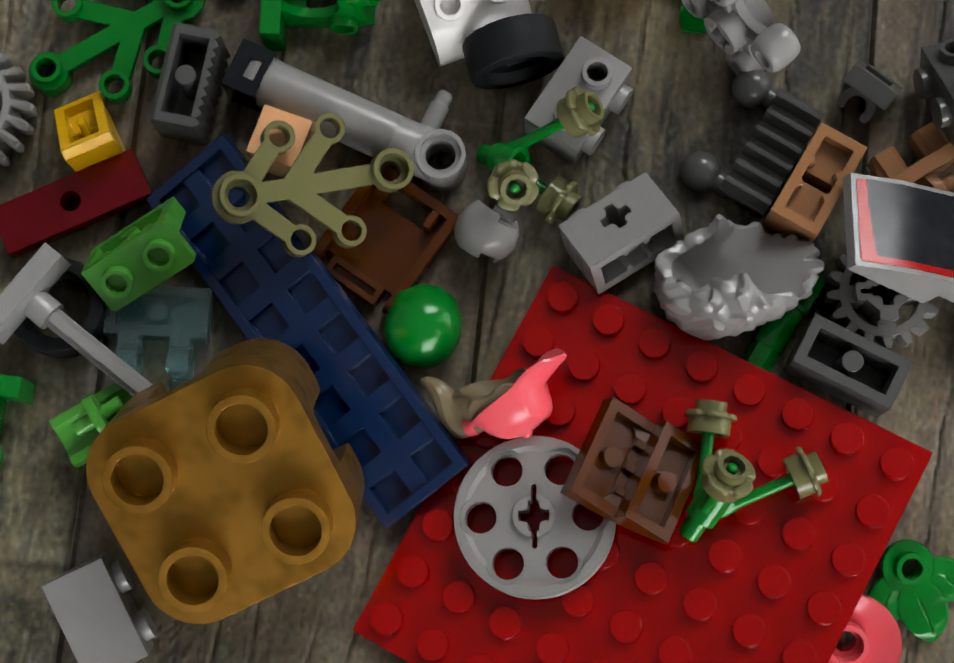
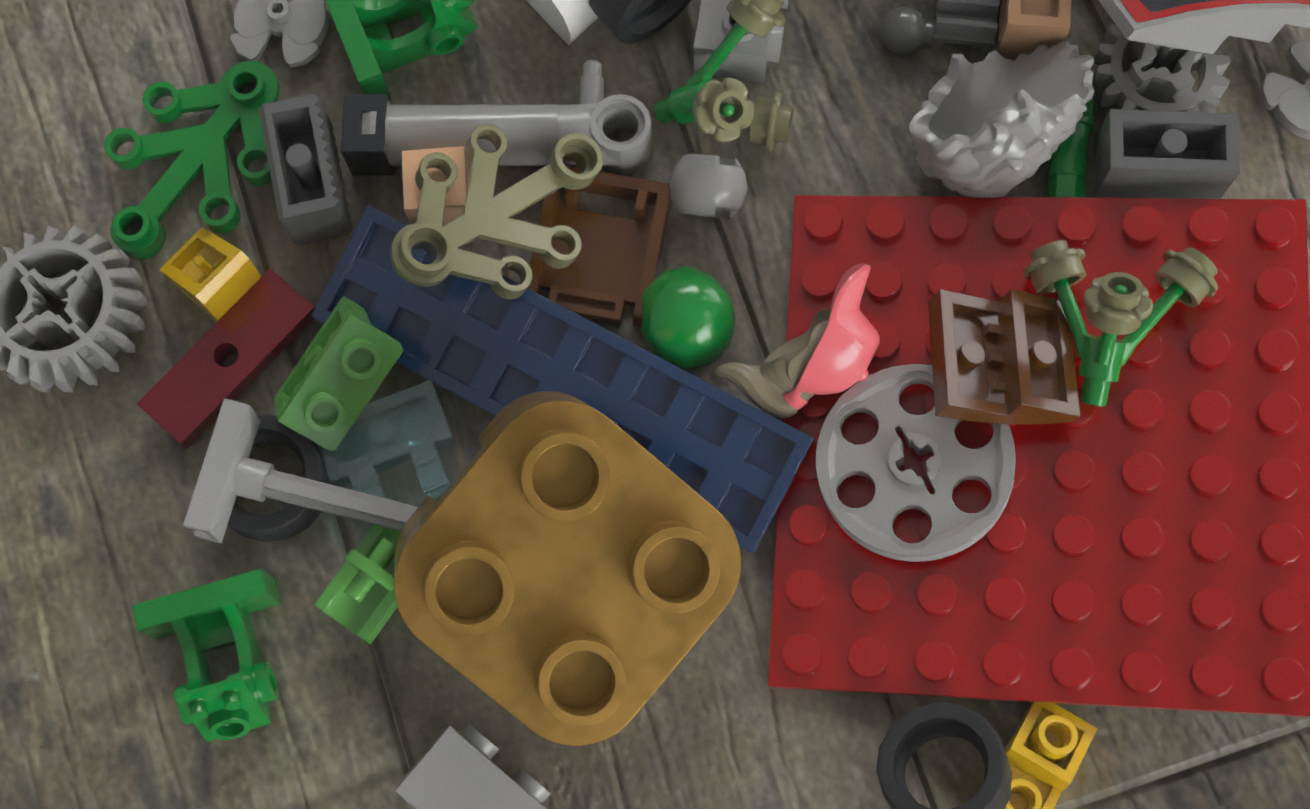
camera: 25 degrees left, 5 degrees down
(621, 232) = (855, 123): light grey brick -> none

